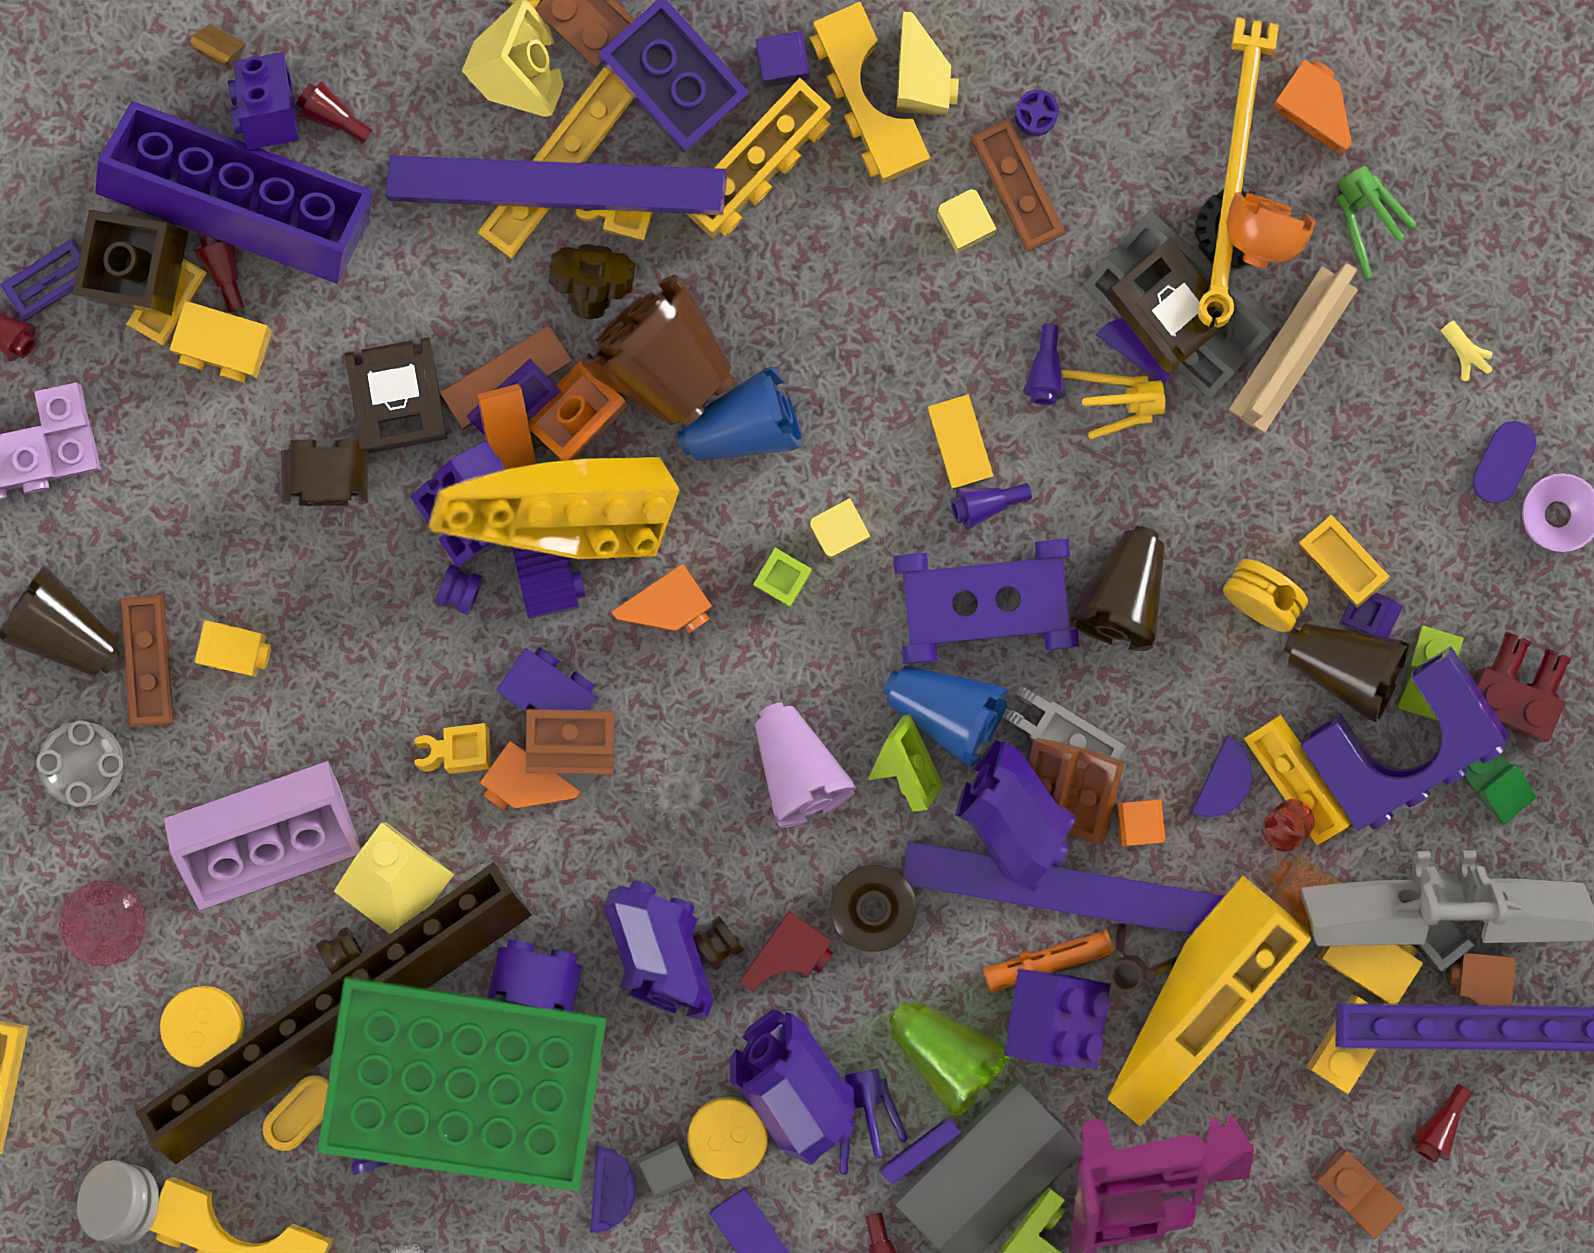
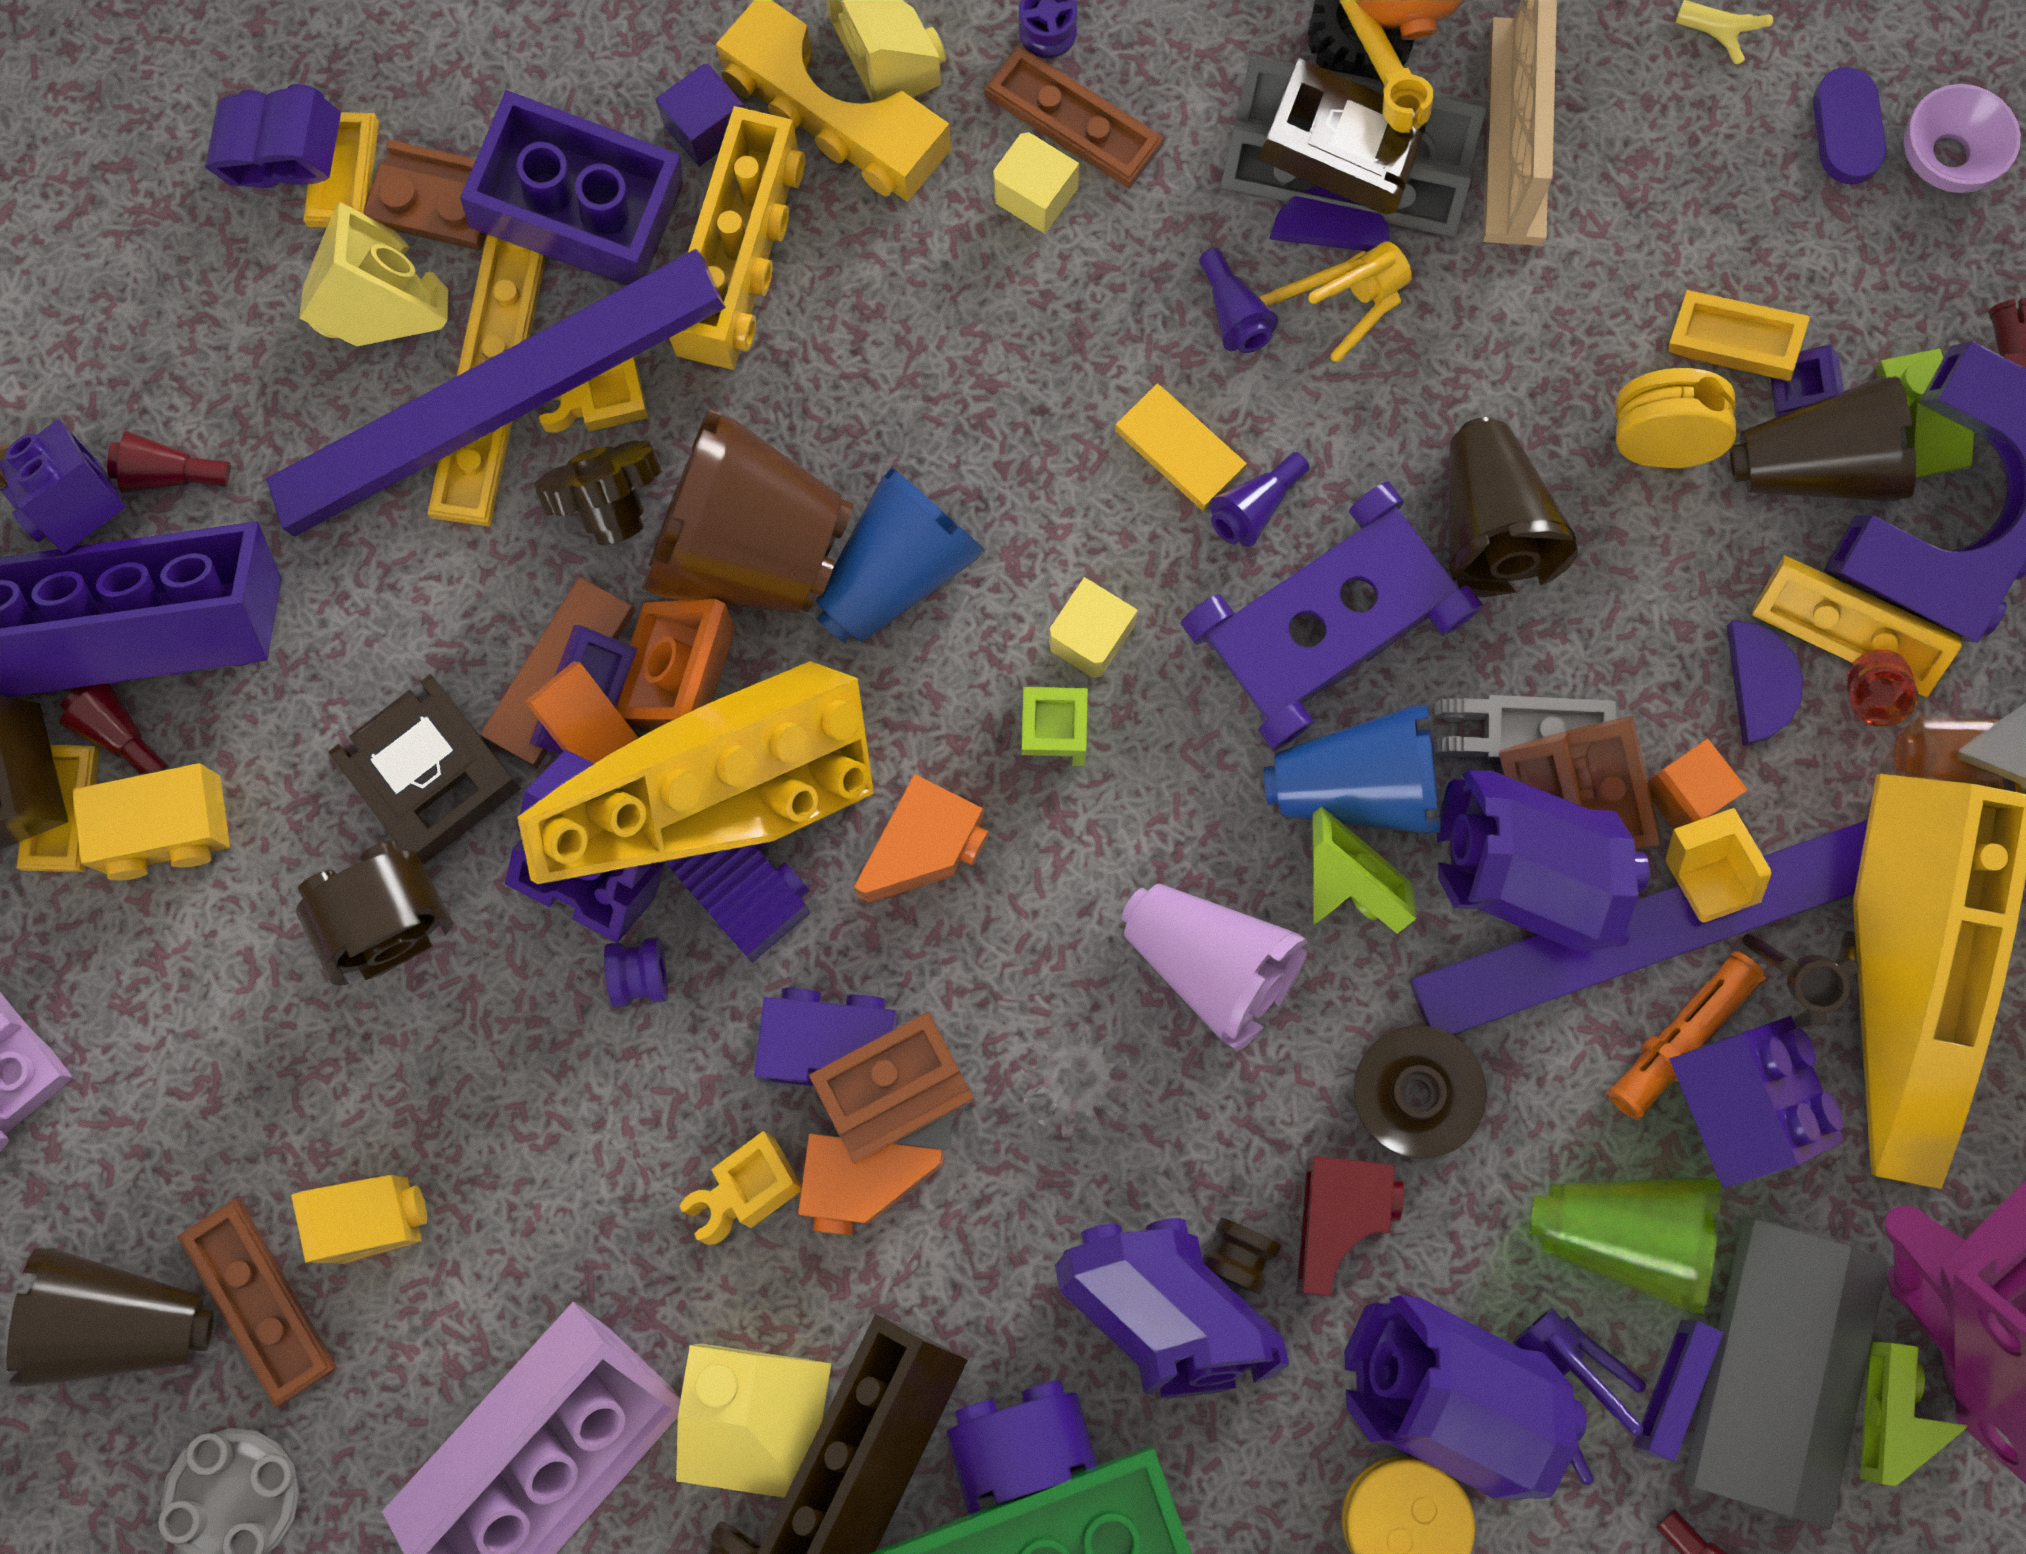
camera: 25 degrees left, 10 degrees down
(1121, 875) = (1718, 865): none -> yellow panel

